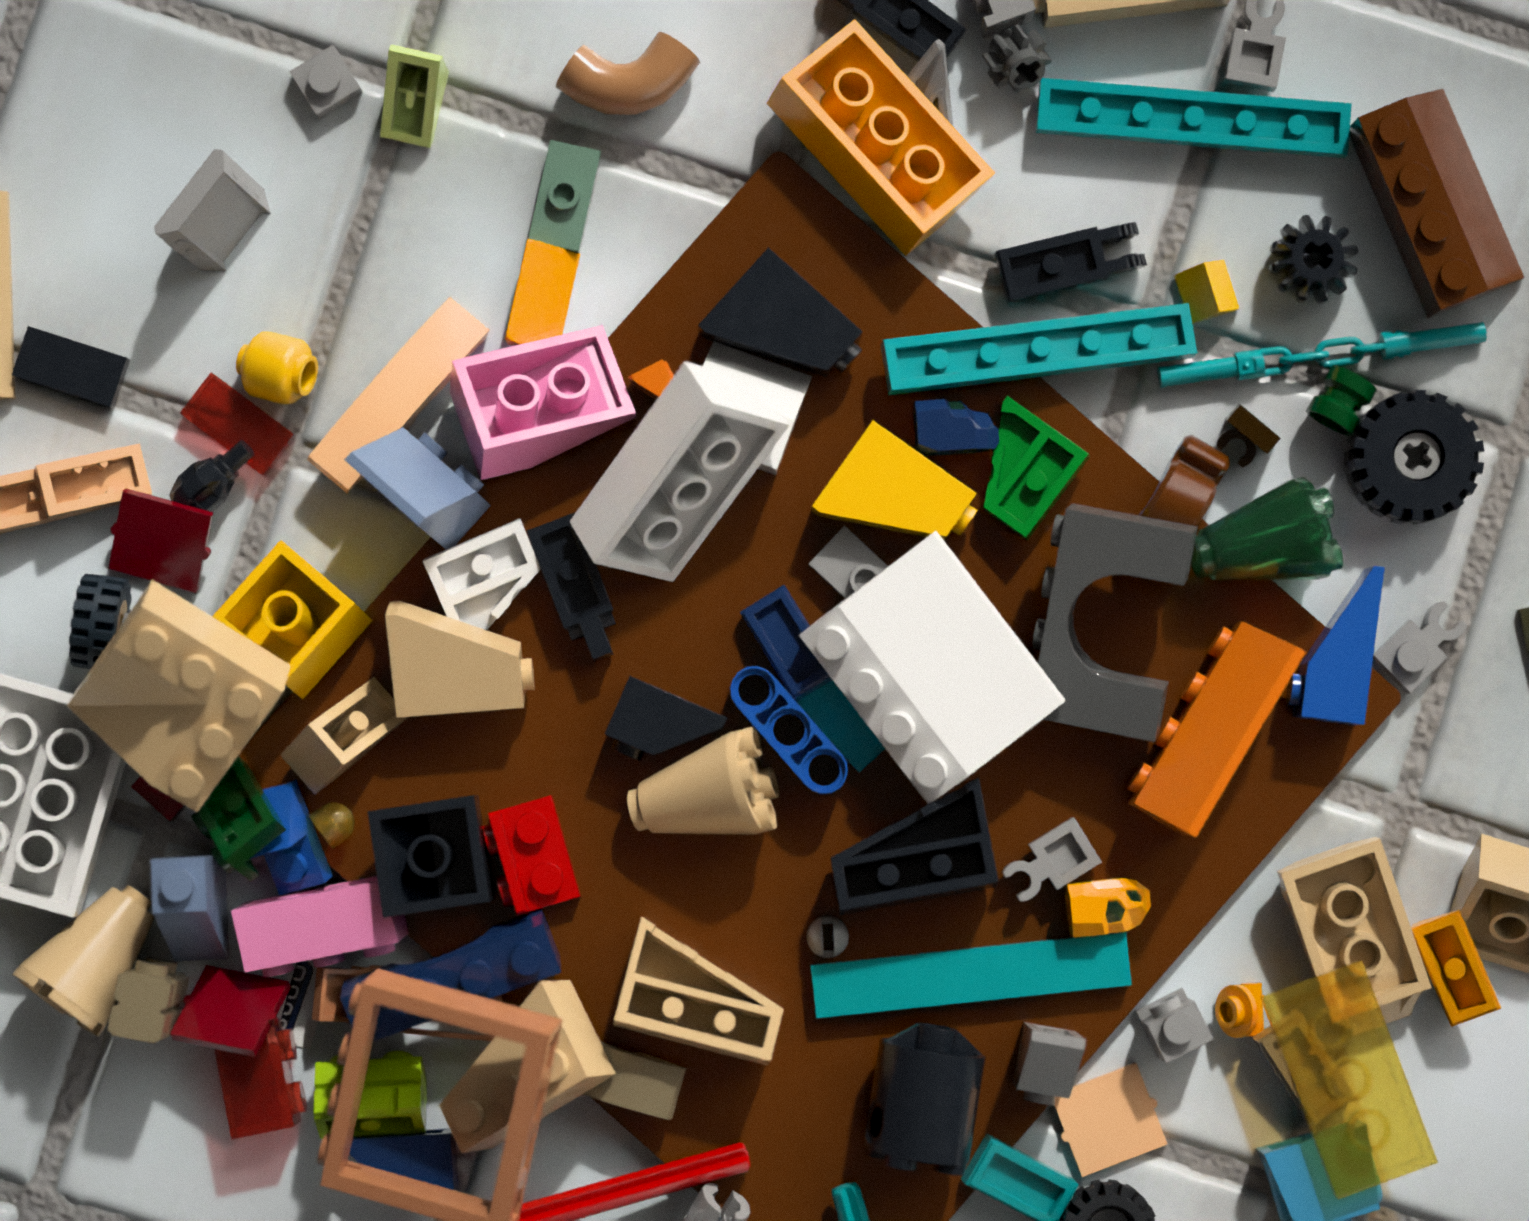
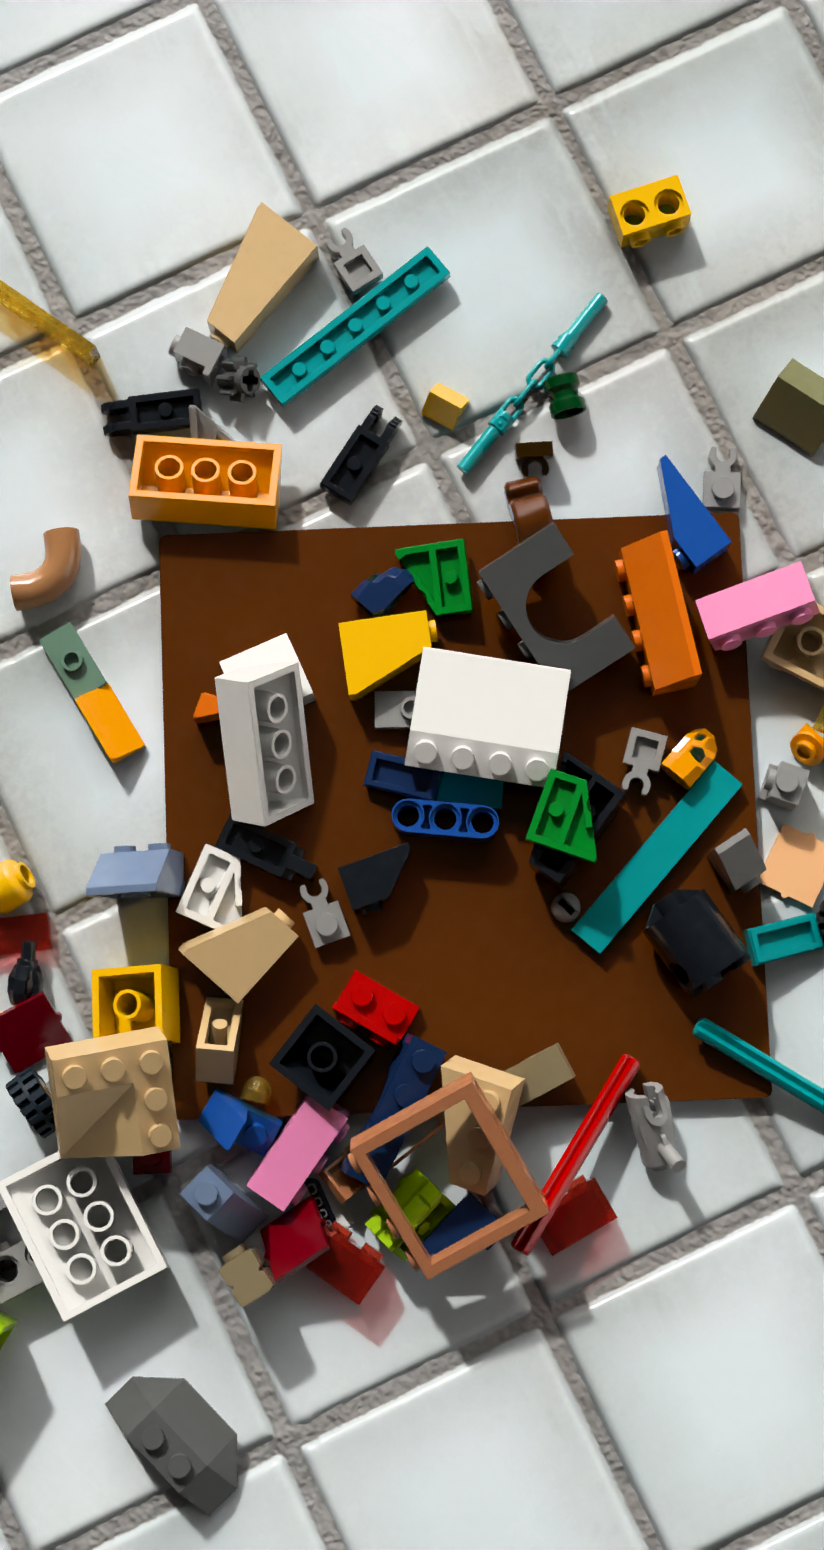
camera: 30 degrees left, 5 degrees down
(83, 960) = (194, 1286): tan cone -> none
(238, 820) = (206, 1134): dark green bracket -> none
(399, 390) = (81, 838): light nougat slope -> none
(538, 399) = (156, 775): bright pink slope -> none
(569, 713) = (326, 919): none -> light grey plate
(693, 1002) = (529, 1003): tan wedge -> none
(710, 791) = (434, 889): tan cone -> none
(783, 320) = (244, 617): black slope -> none
(909, 850) = (564, 818): none -> green wing
(1038, 349) = (387, 512): teal plate -> none
(1272, 537) = (596, 493): clear green cone -> none
(1310, 240) = (496, 343): black gear -> none
(1324, 819) = (757, 607): none -> bright pink brick
(1379, 459) = (612, 407): black bush -> none
(1434, 201) = (515, 256): reddish brown slope -> none

